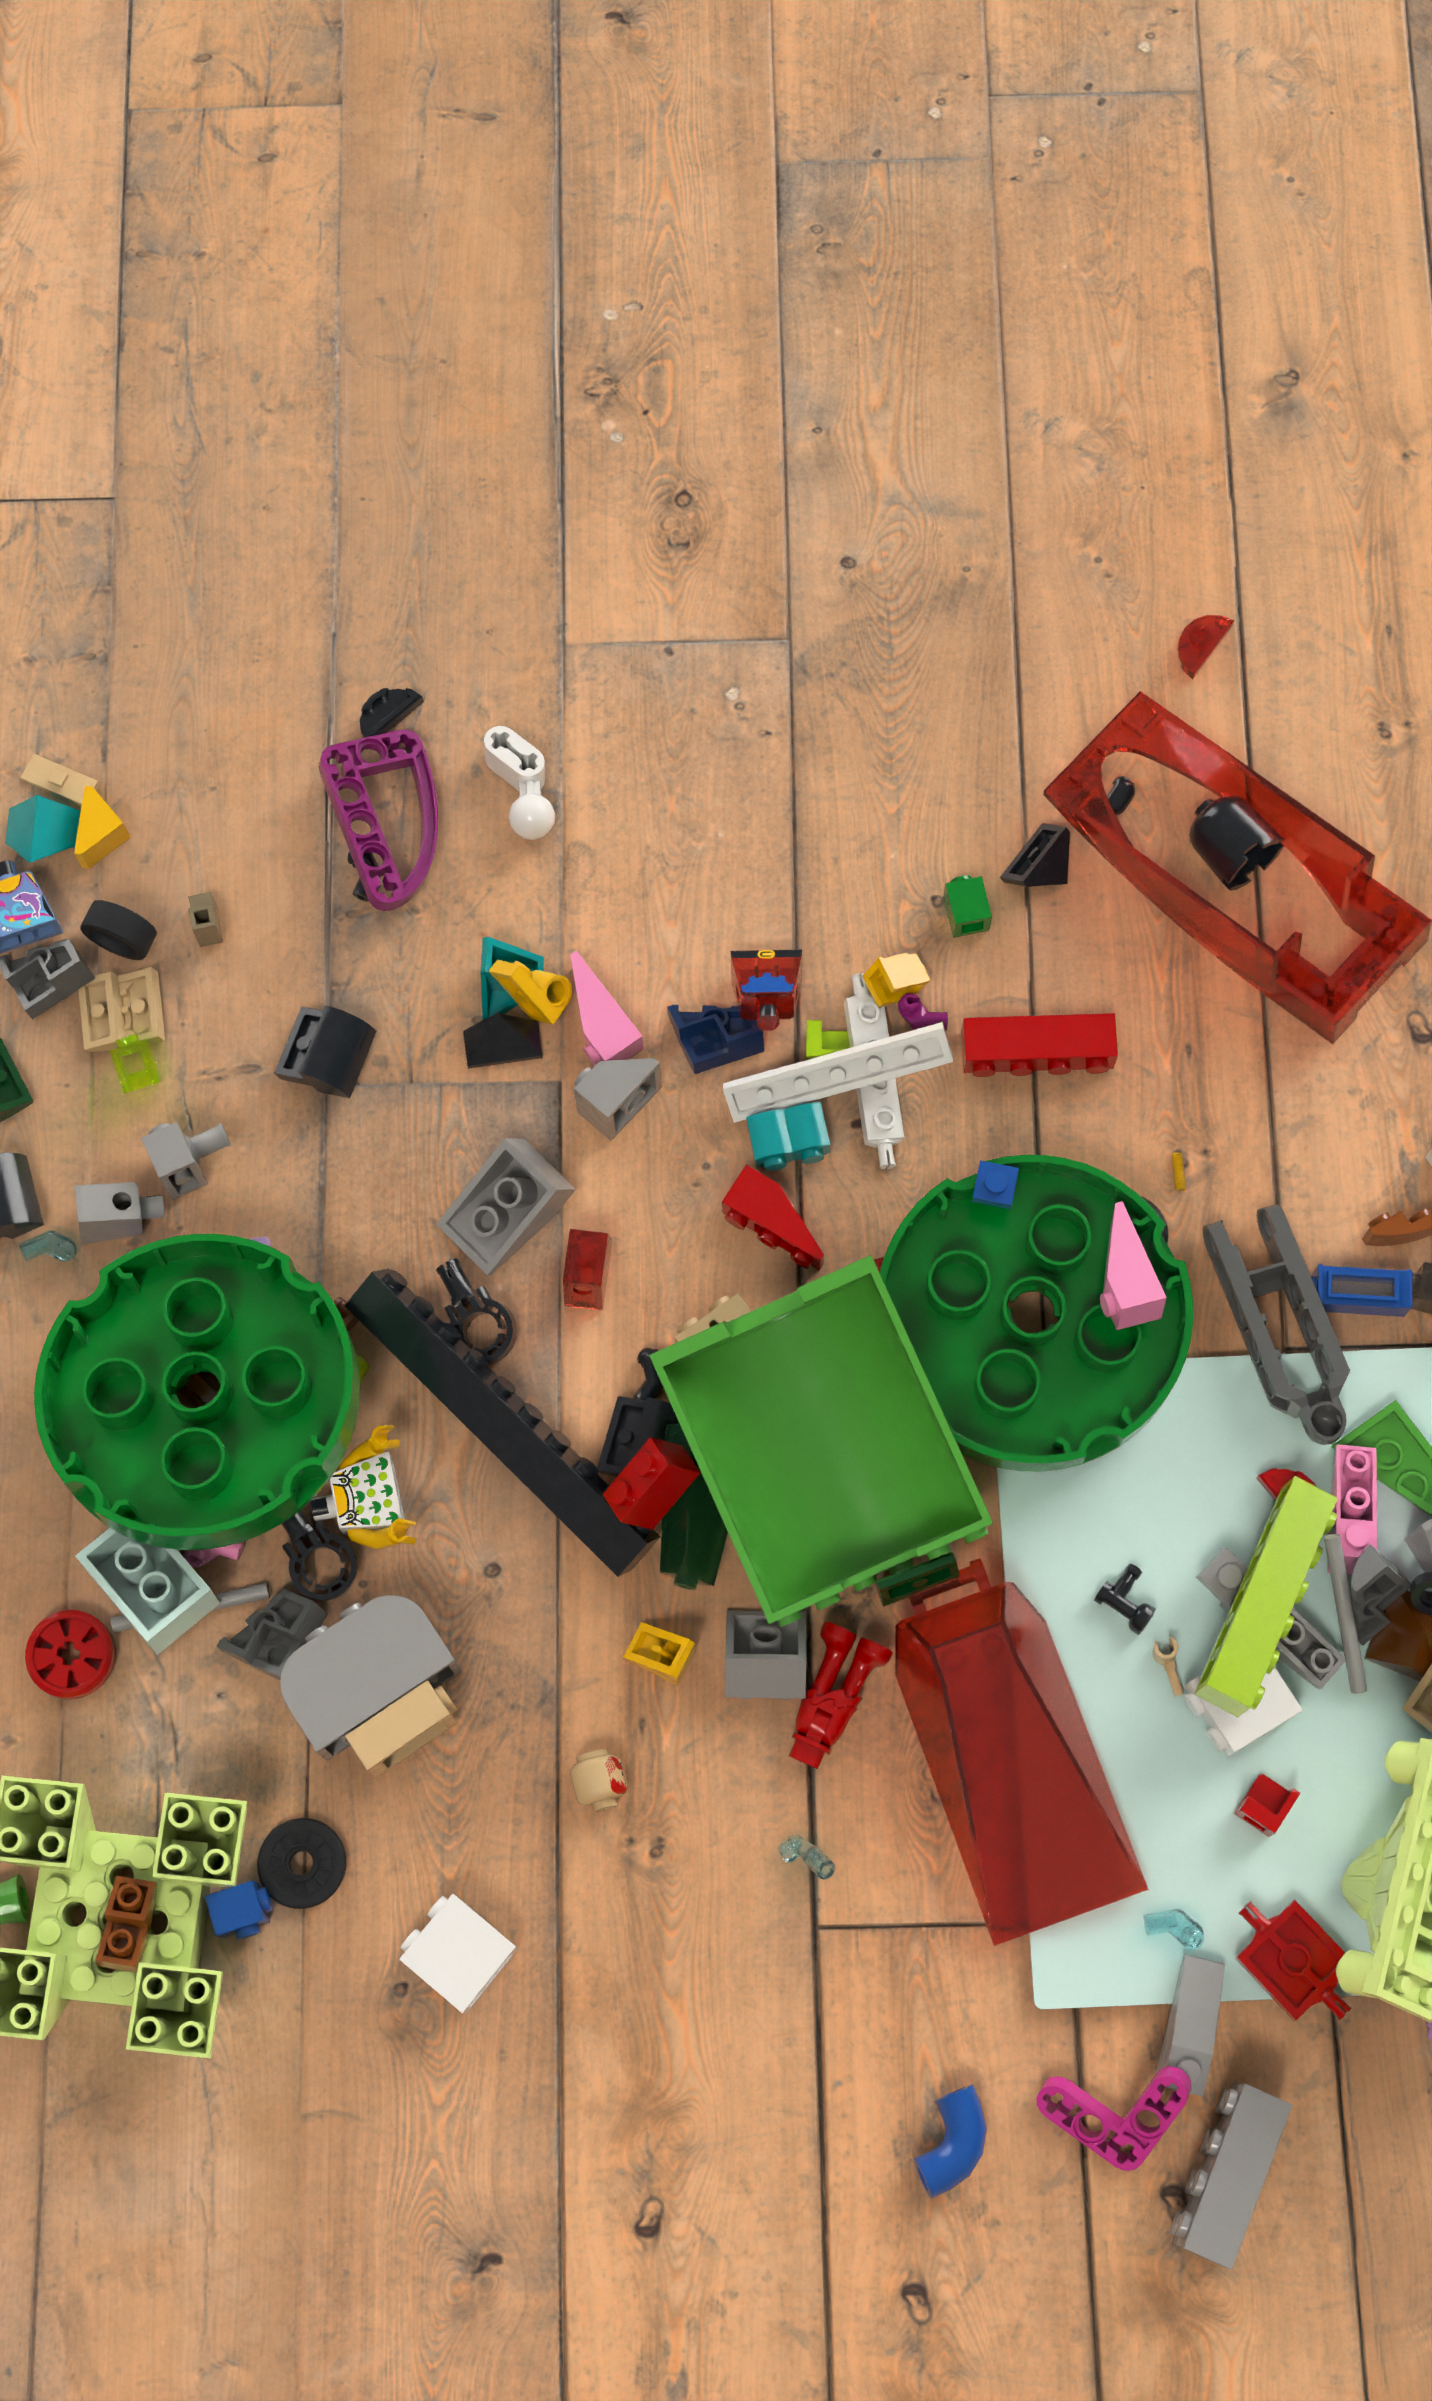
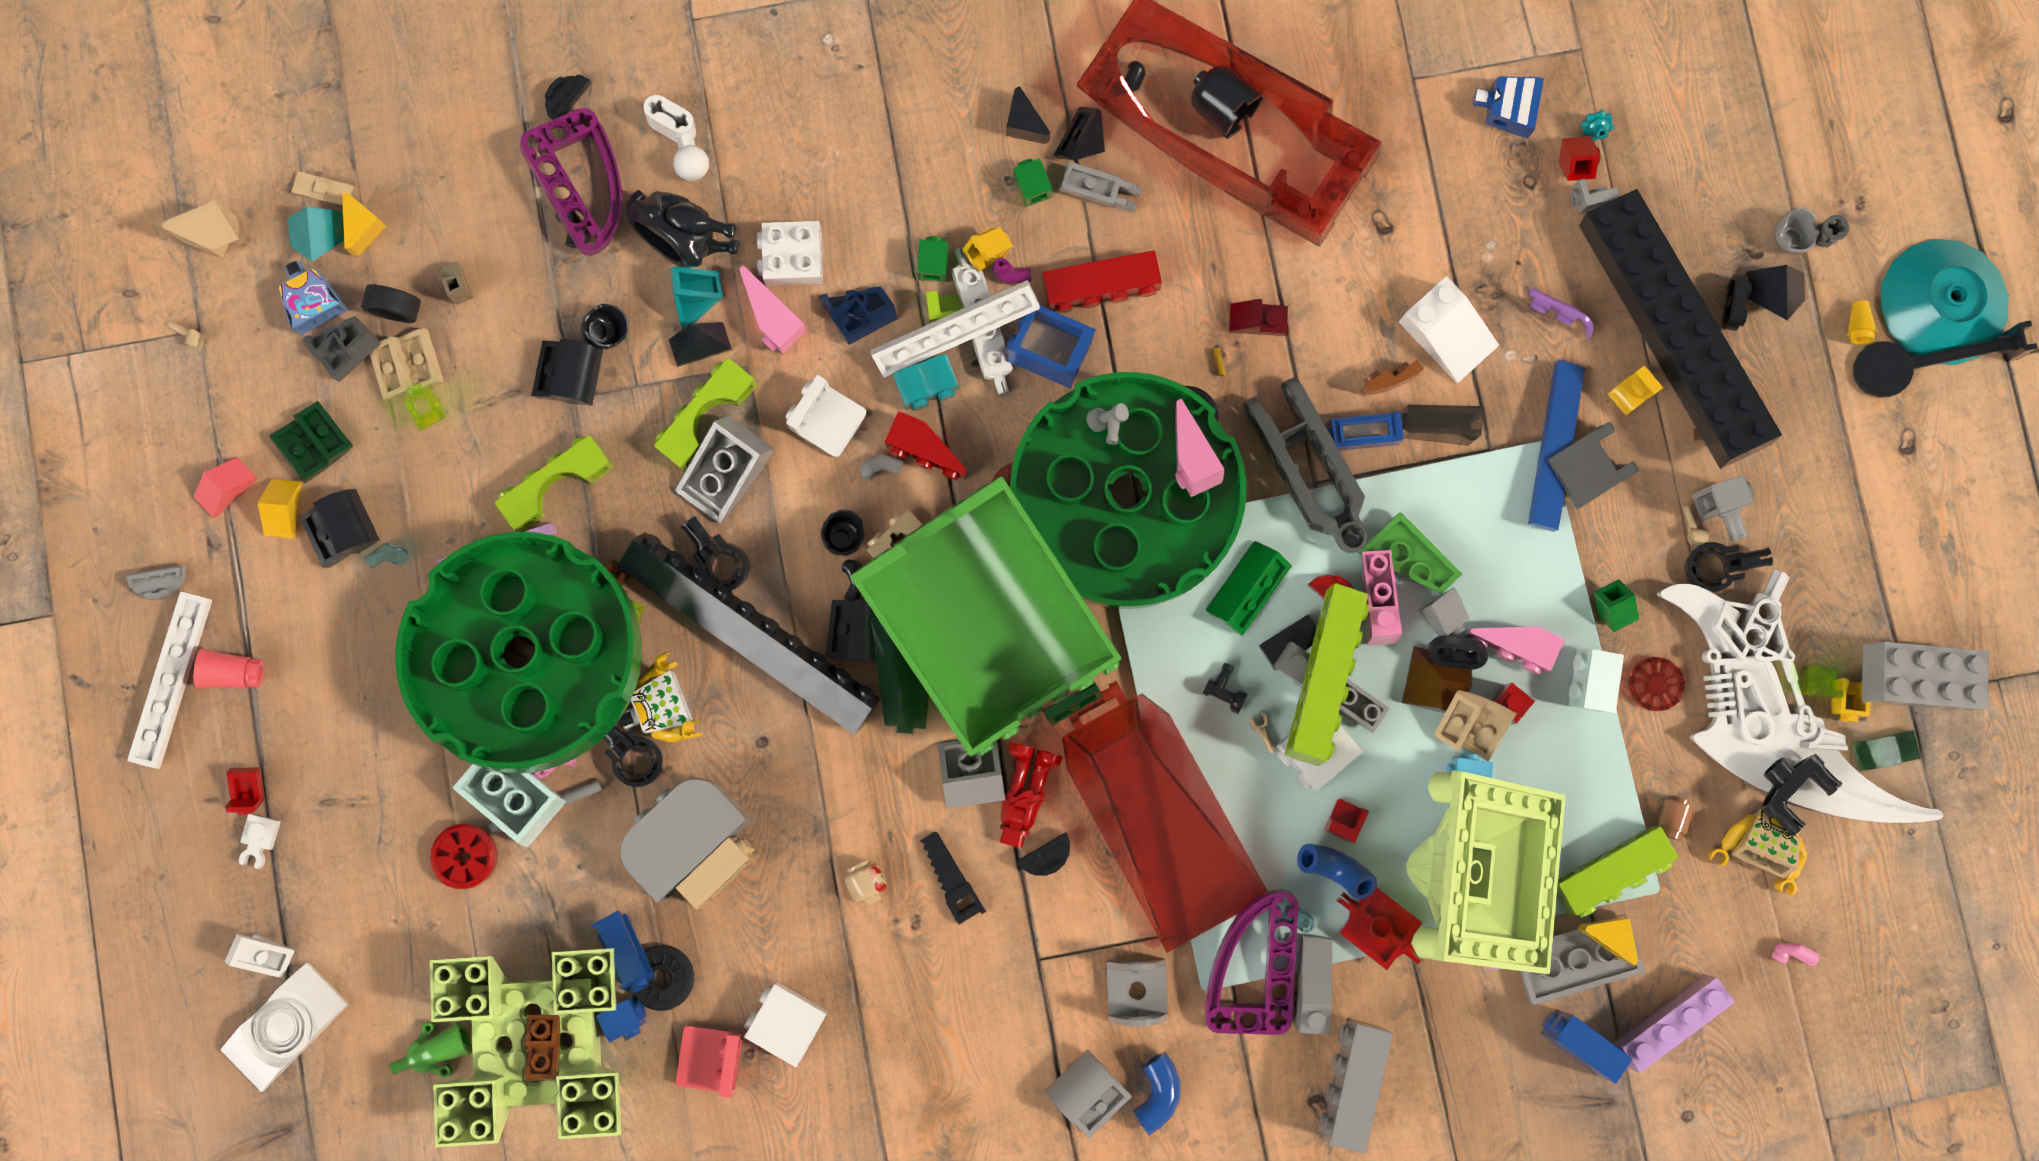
camera: 15 degrees left, 10 degrees up
(113, 1211) = (419, 526): light grey torso -> none
(178, 1156) = (470, 473): light grey brick -> none
(265, 1832) = (630, 960): none -> blue window
(275, 1632) = (612, 815): dark grey slope -> none
(323, 1165) = (524, 503): none -> lime arch
(345, 1986) = (709, 1059): none -> coral bracket
(384, 1000) = (604, 326): none -> black hair
(502, 892) = (678, 228): none -> black piece
(528, 1100) = (726, 386): none -> lime arch
(537, 992) = (719, 300): yellow plate -> none
(587, 1267) = (792, 508): clear red torso -> none
(616, 1092) = (791, 369): light grey slope -> none
(639, 947) = (790, 253): none -> white brick
(646, 1310) = (842, 533): none -> black hair
(648, 1159) = (825, 417): none -> white bracket
(651, 1483) = (867, 665): red brick -> none
(660, 1652) = (894, 783): yellow slope -> none
(710, 1229) = (878, 463): none -> light grey arm
(715, 1795) = (951, 878): none -> black piece
(766, 985) = (891, 268): clear red torso -> none
(809, 1854) = (1027, 910): clear light blue arm -> none
(822, 983) = (932, 259): none -> green brick
(850, 1788) = (1048, 857): none -> black plate
(856, 2124) = (1088, 1094): none -> light grey brick
(959, 1113) = (1050, 345): none -> blue window
(969, 829) = (1025, 121): none -> black slope
(969, 1975) = (1151, 1007): none -> light grey hose
(995, 1184) = (1085, 401): blue plate -> none
(1022, 1216) = (1099, 420): none -> light grey piece
(1053, 925) = (1098, 187): none -> light grey hinge
(1126, 2129) = (1278, 1065): dark pink beam -> none
(1136, 2003) = (1273, 976): none -> magenta beam
(1177, 1468) = (1249, 587): none -> green panel
(1238, 1124) = (1258, 318): none -> dark red slope
(1238, 1538) = (1300, 633): none -> black plate
(1246, 1866) = (1337, 867): none -> blue cylinder
(1345, 1613) = (1384, 675): light grey bar -> none
(1373, 1588) = (1401, 653): dark grey slope -> none

